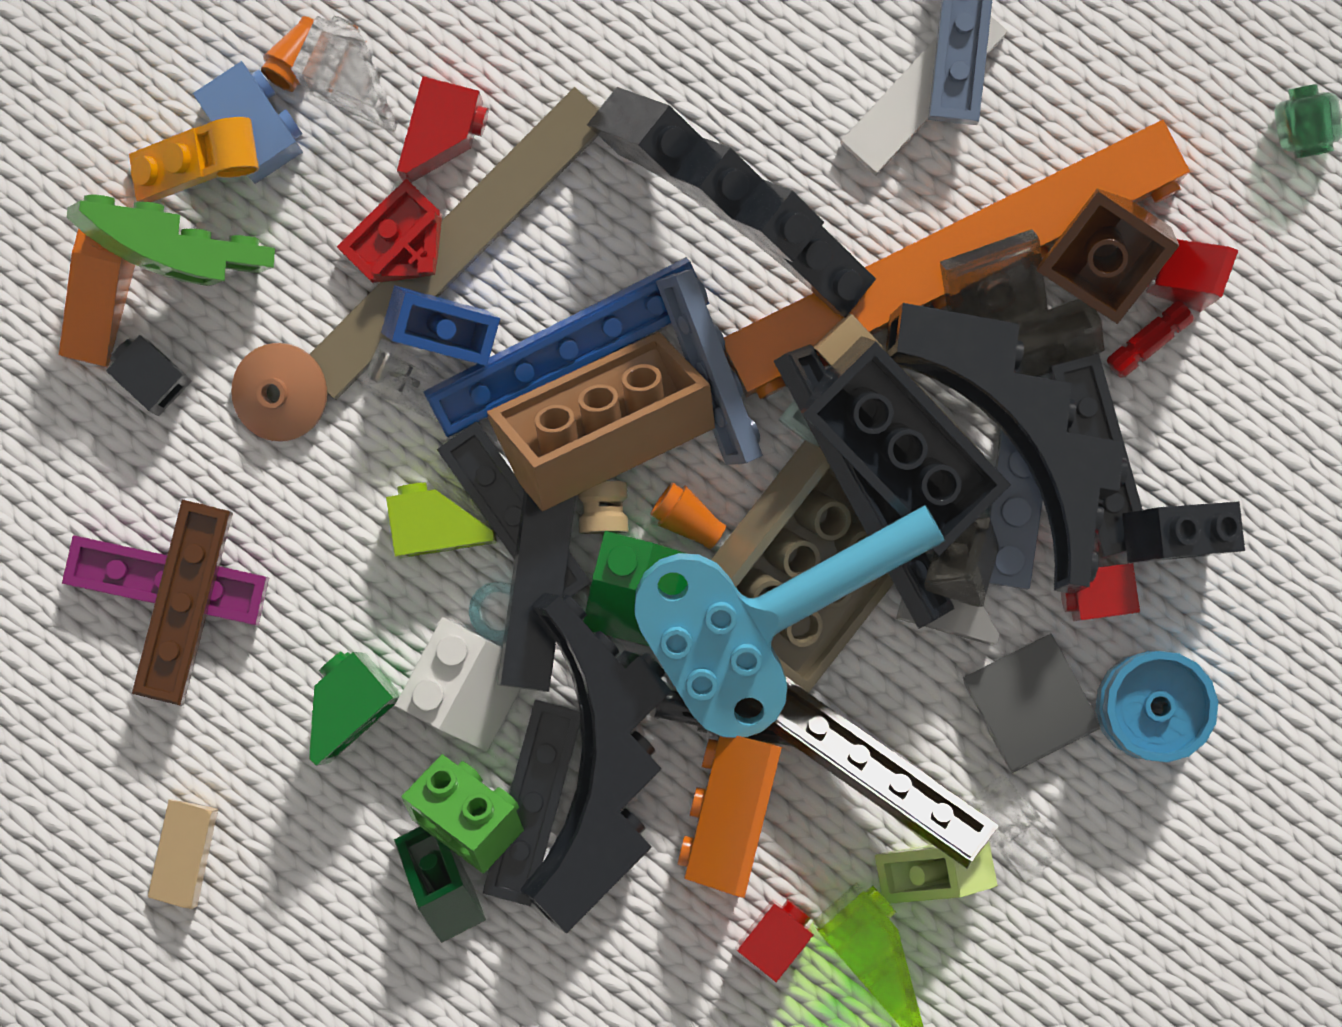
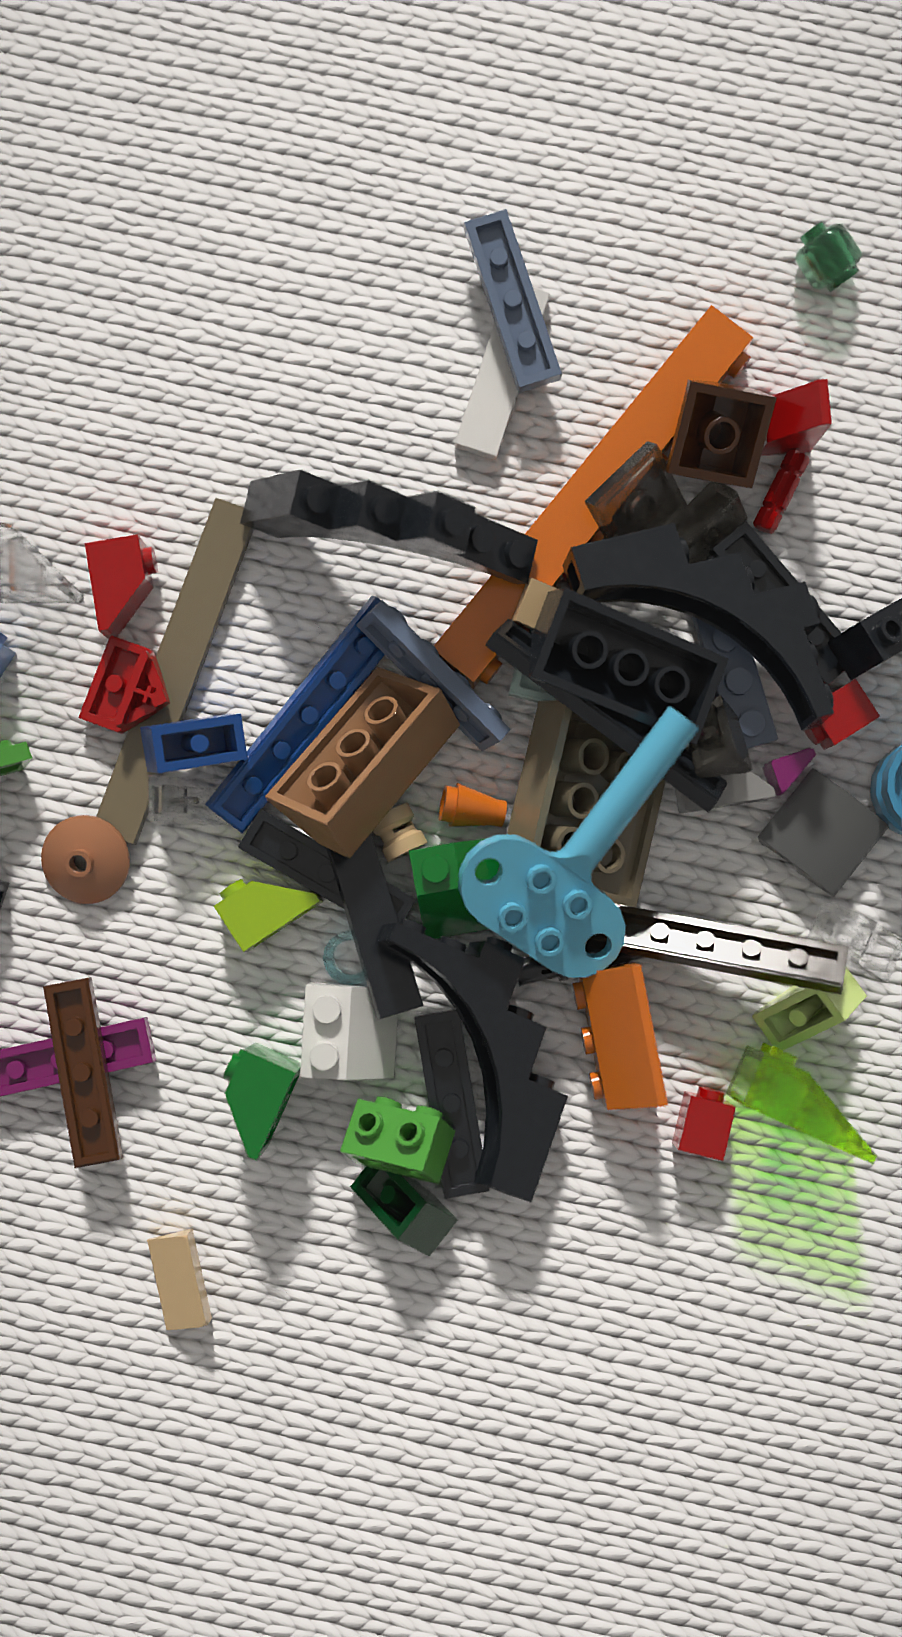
camera: 25 degrees left, 0 degrees up
(1021, 622) = (784, 770): none -> magenta slope

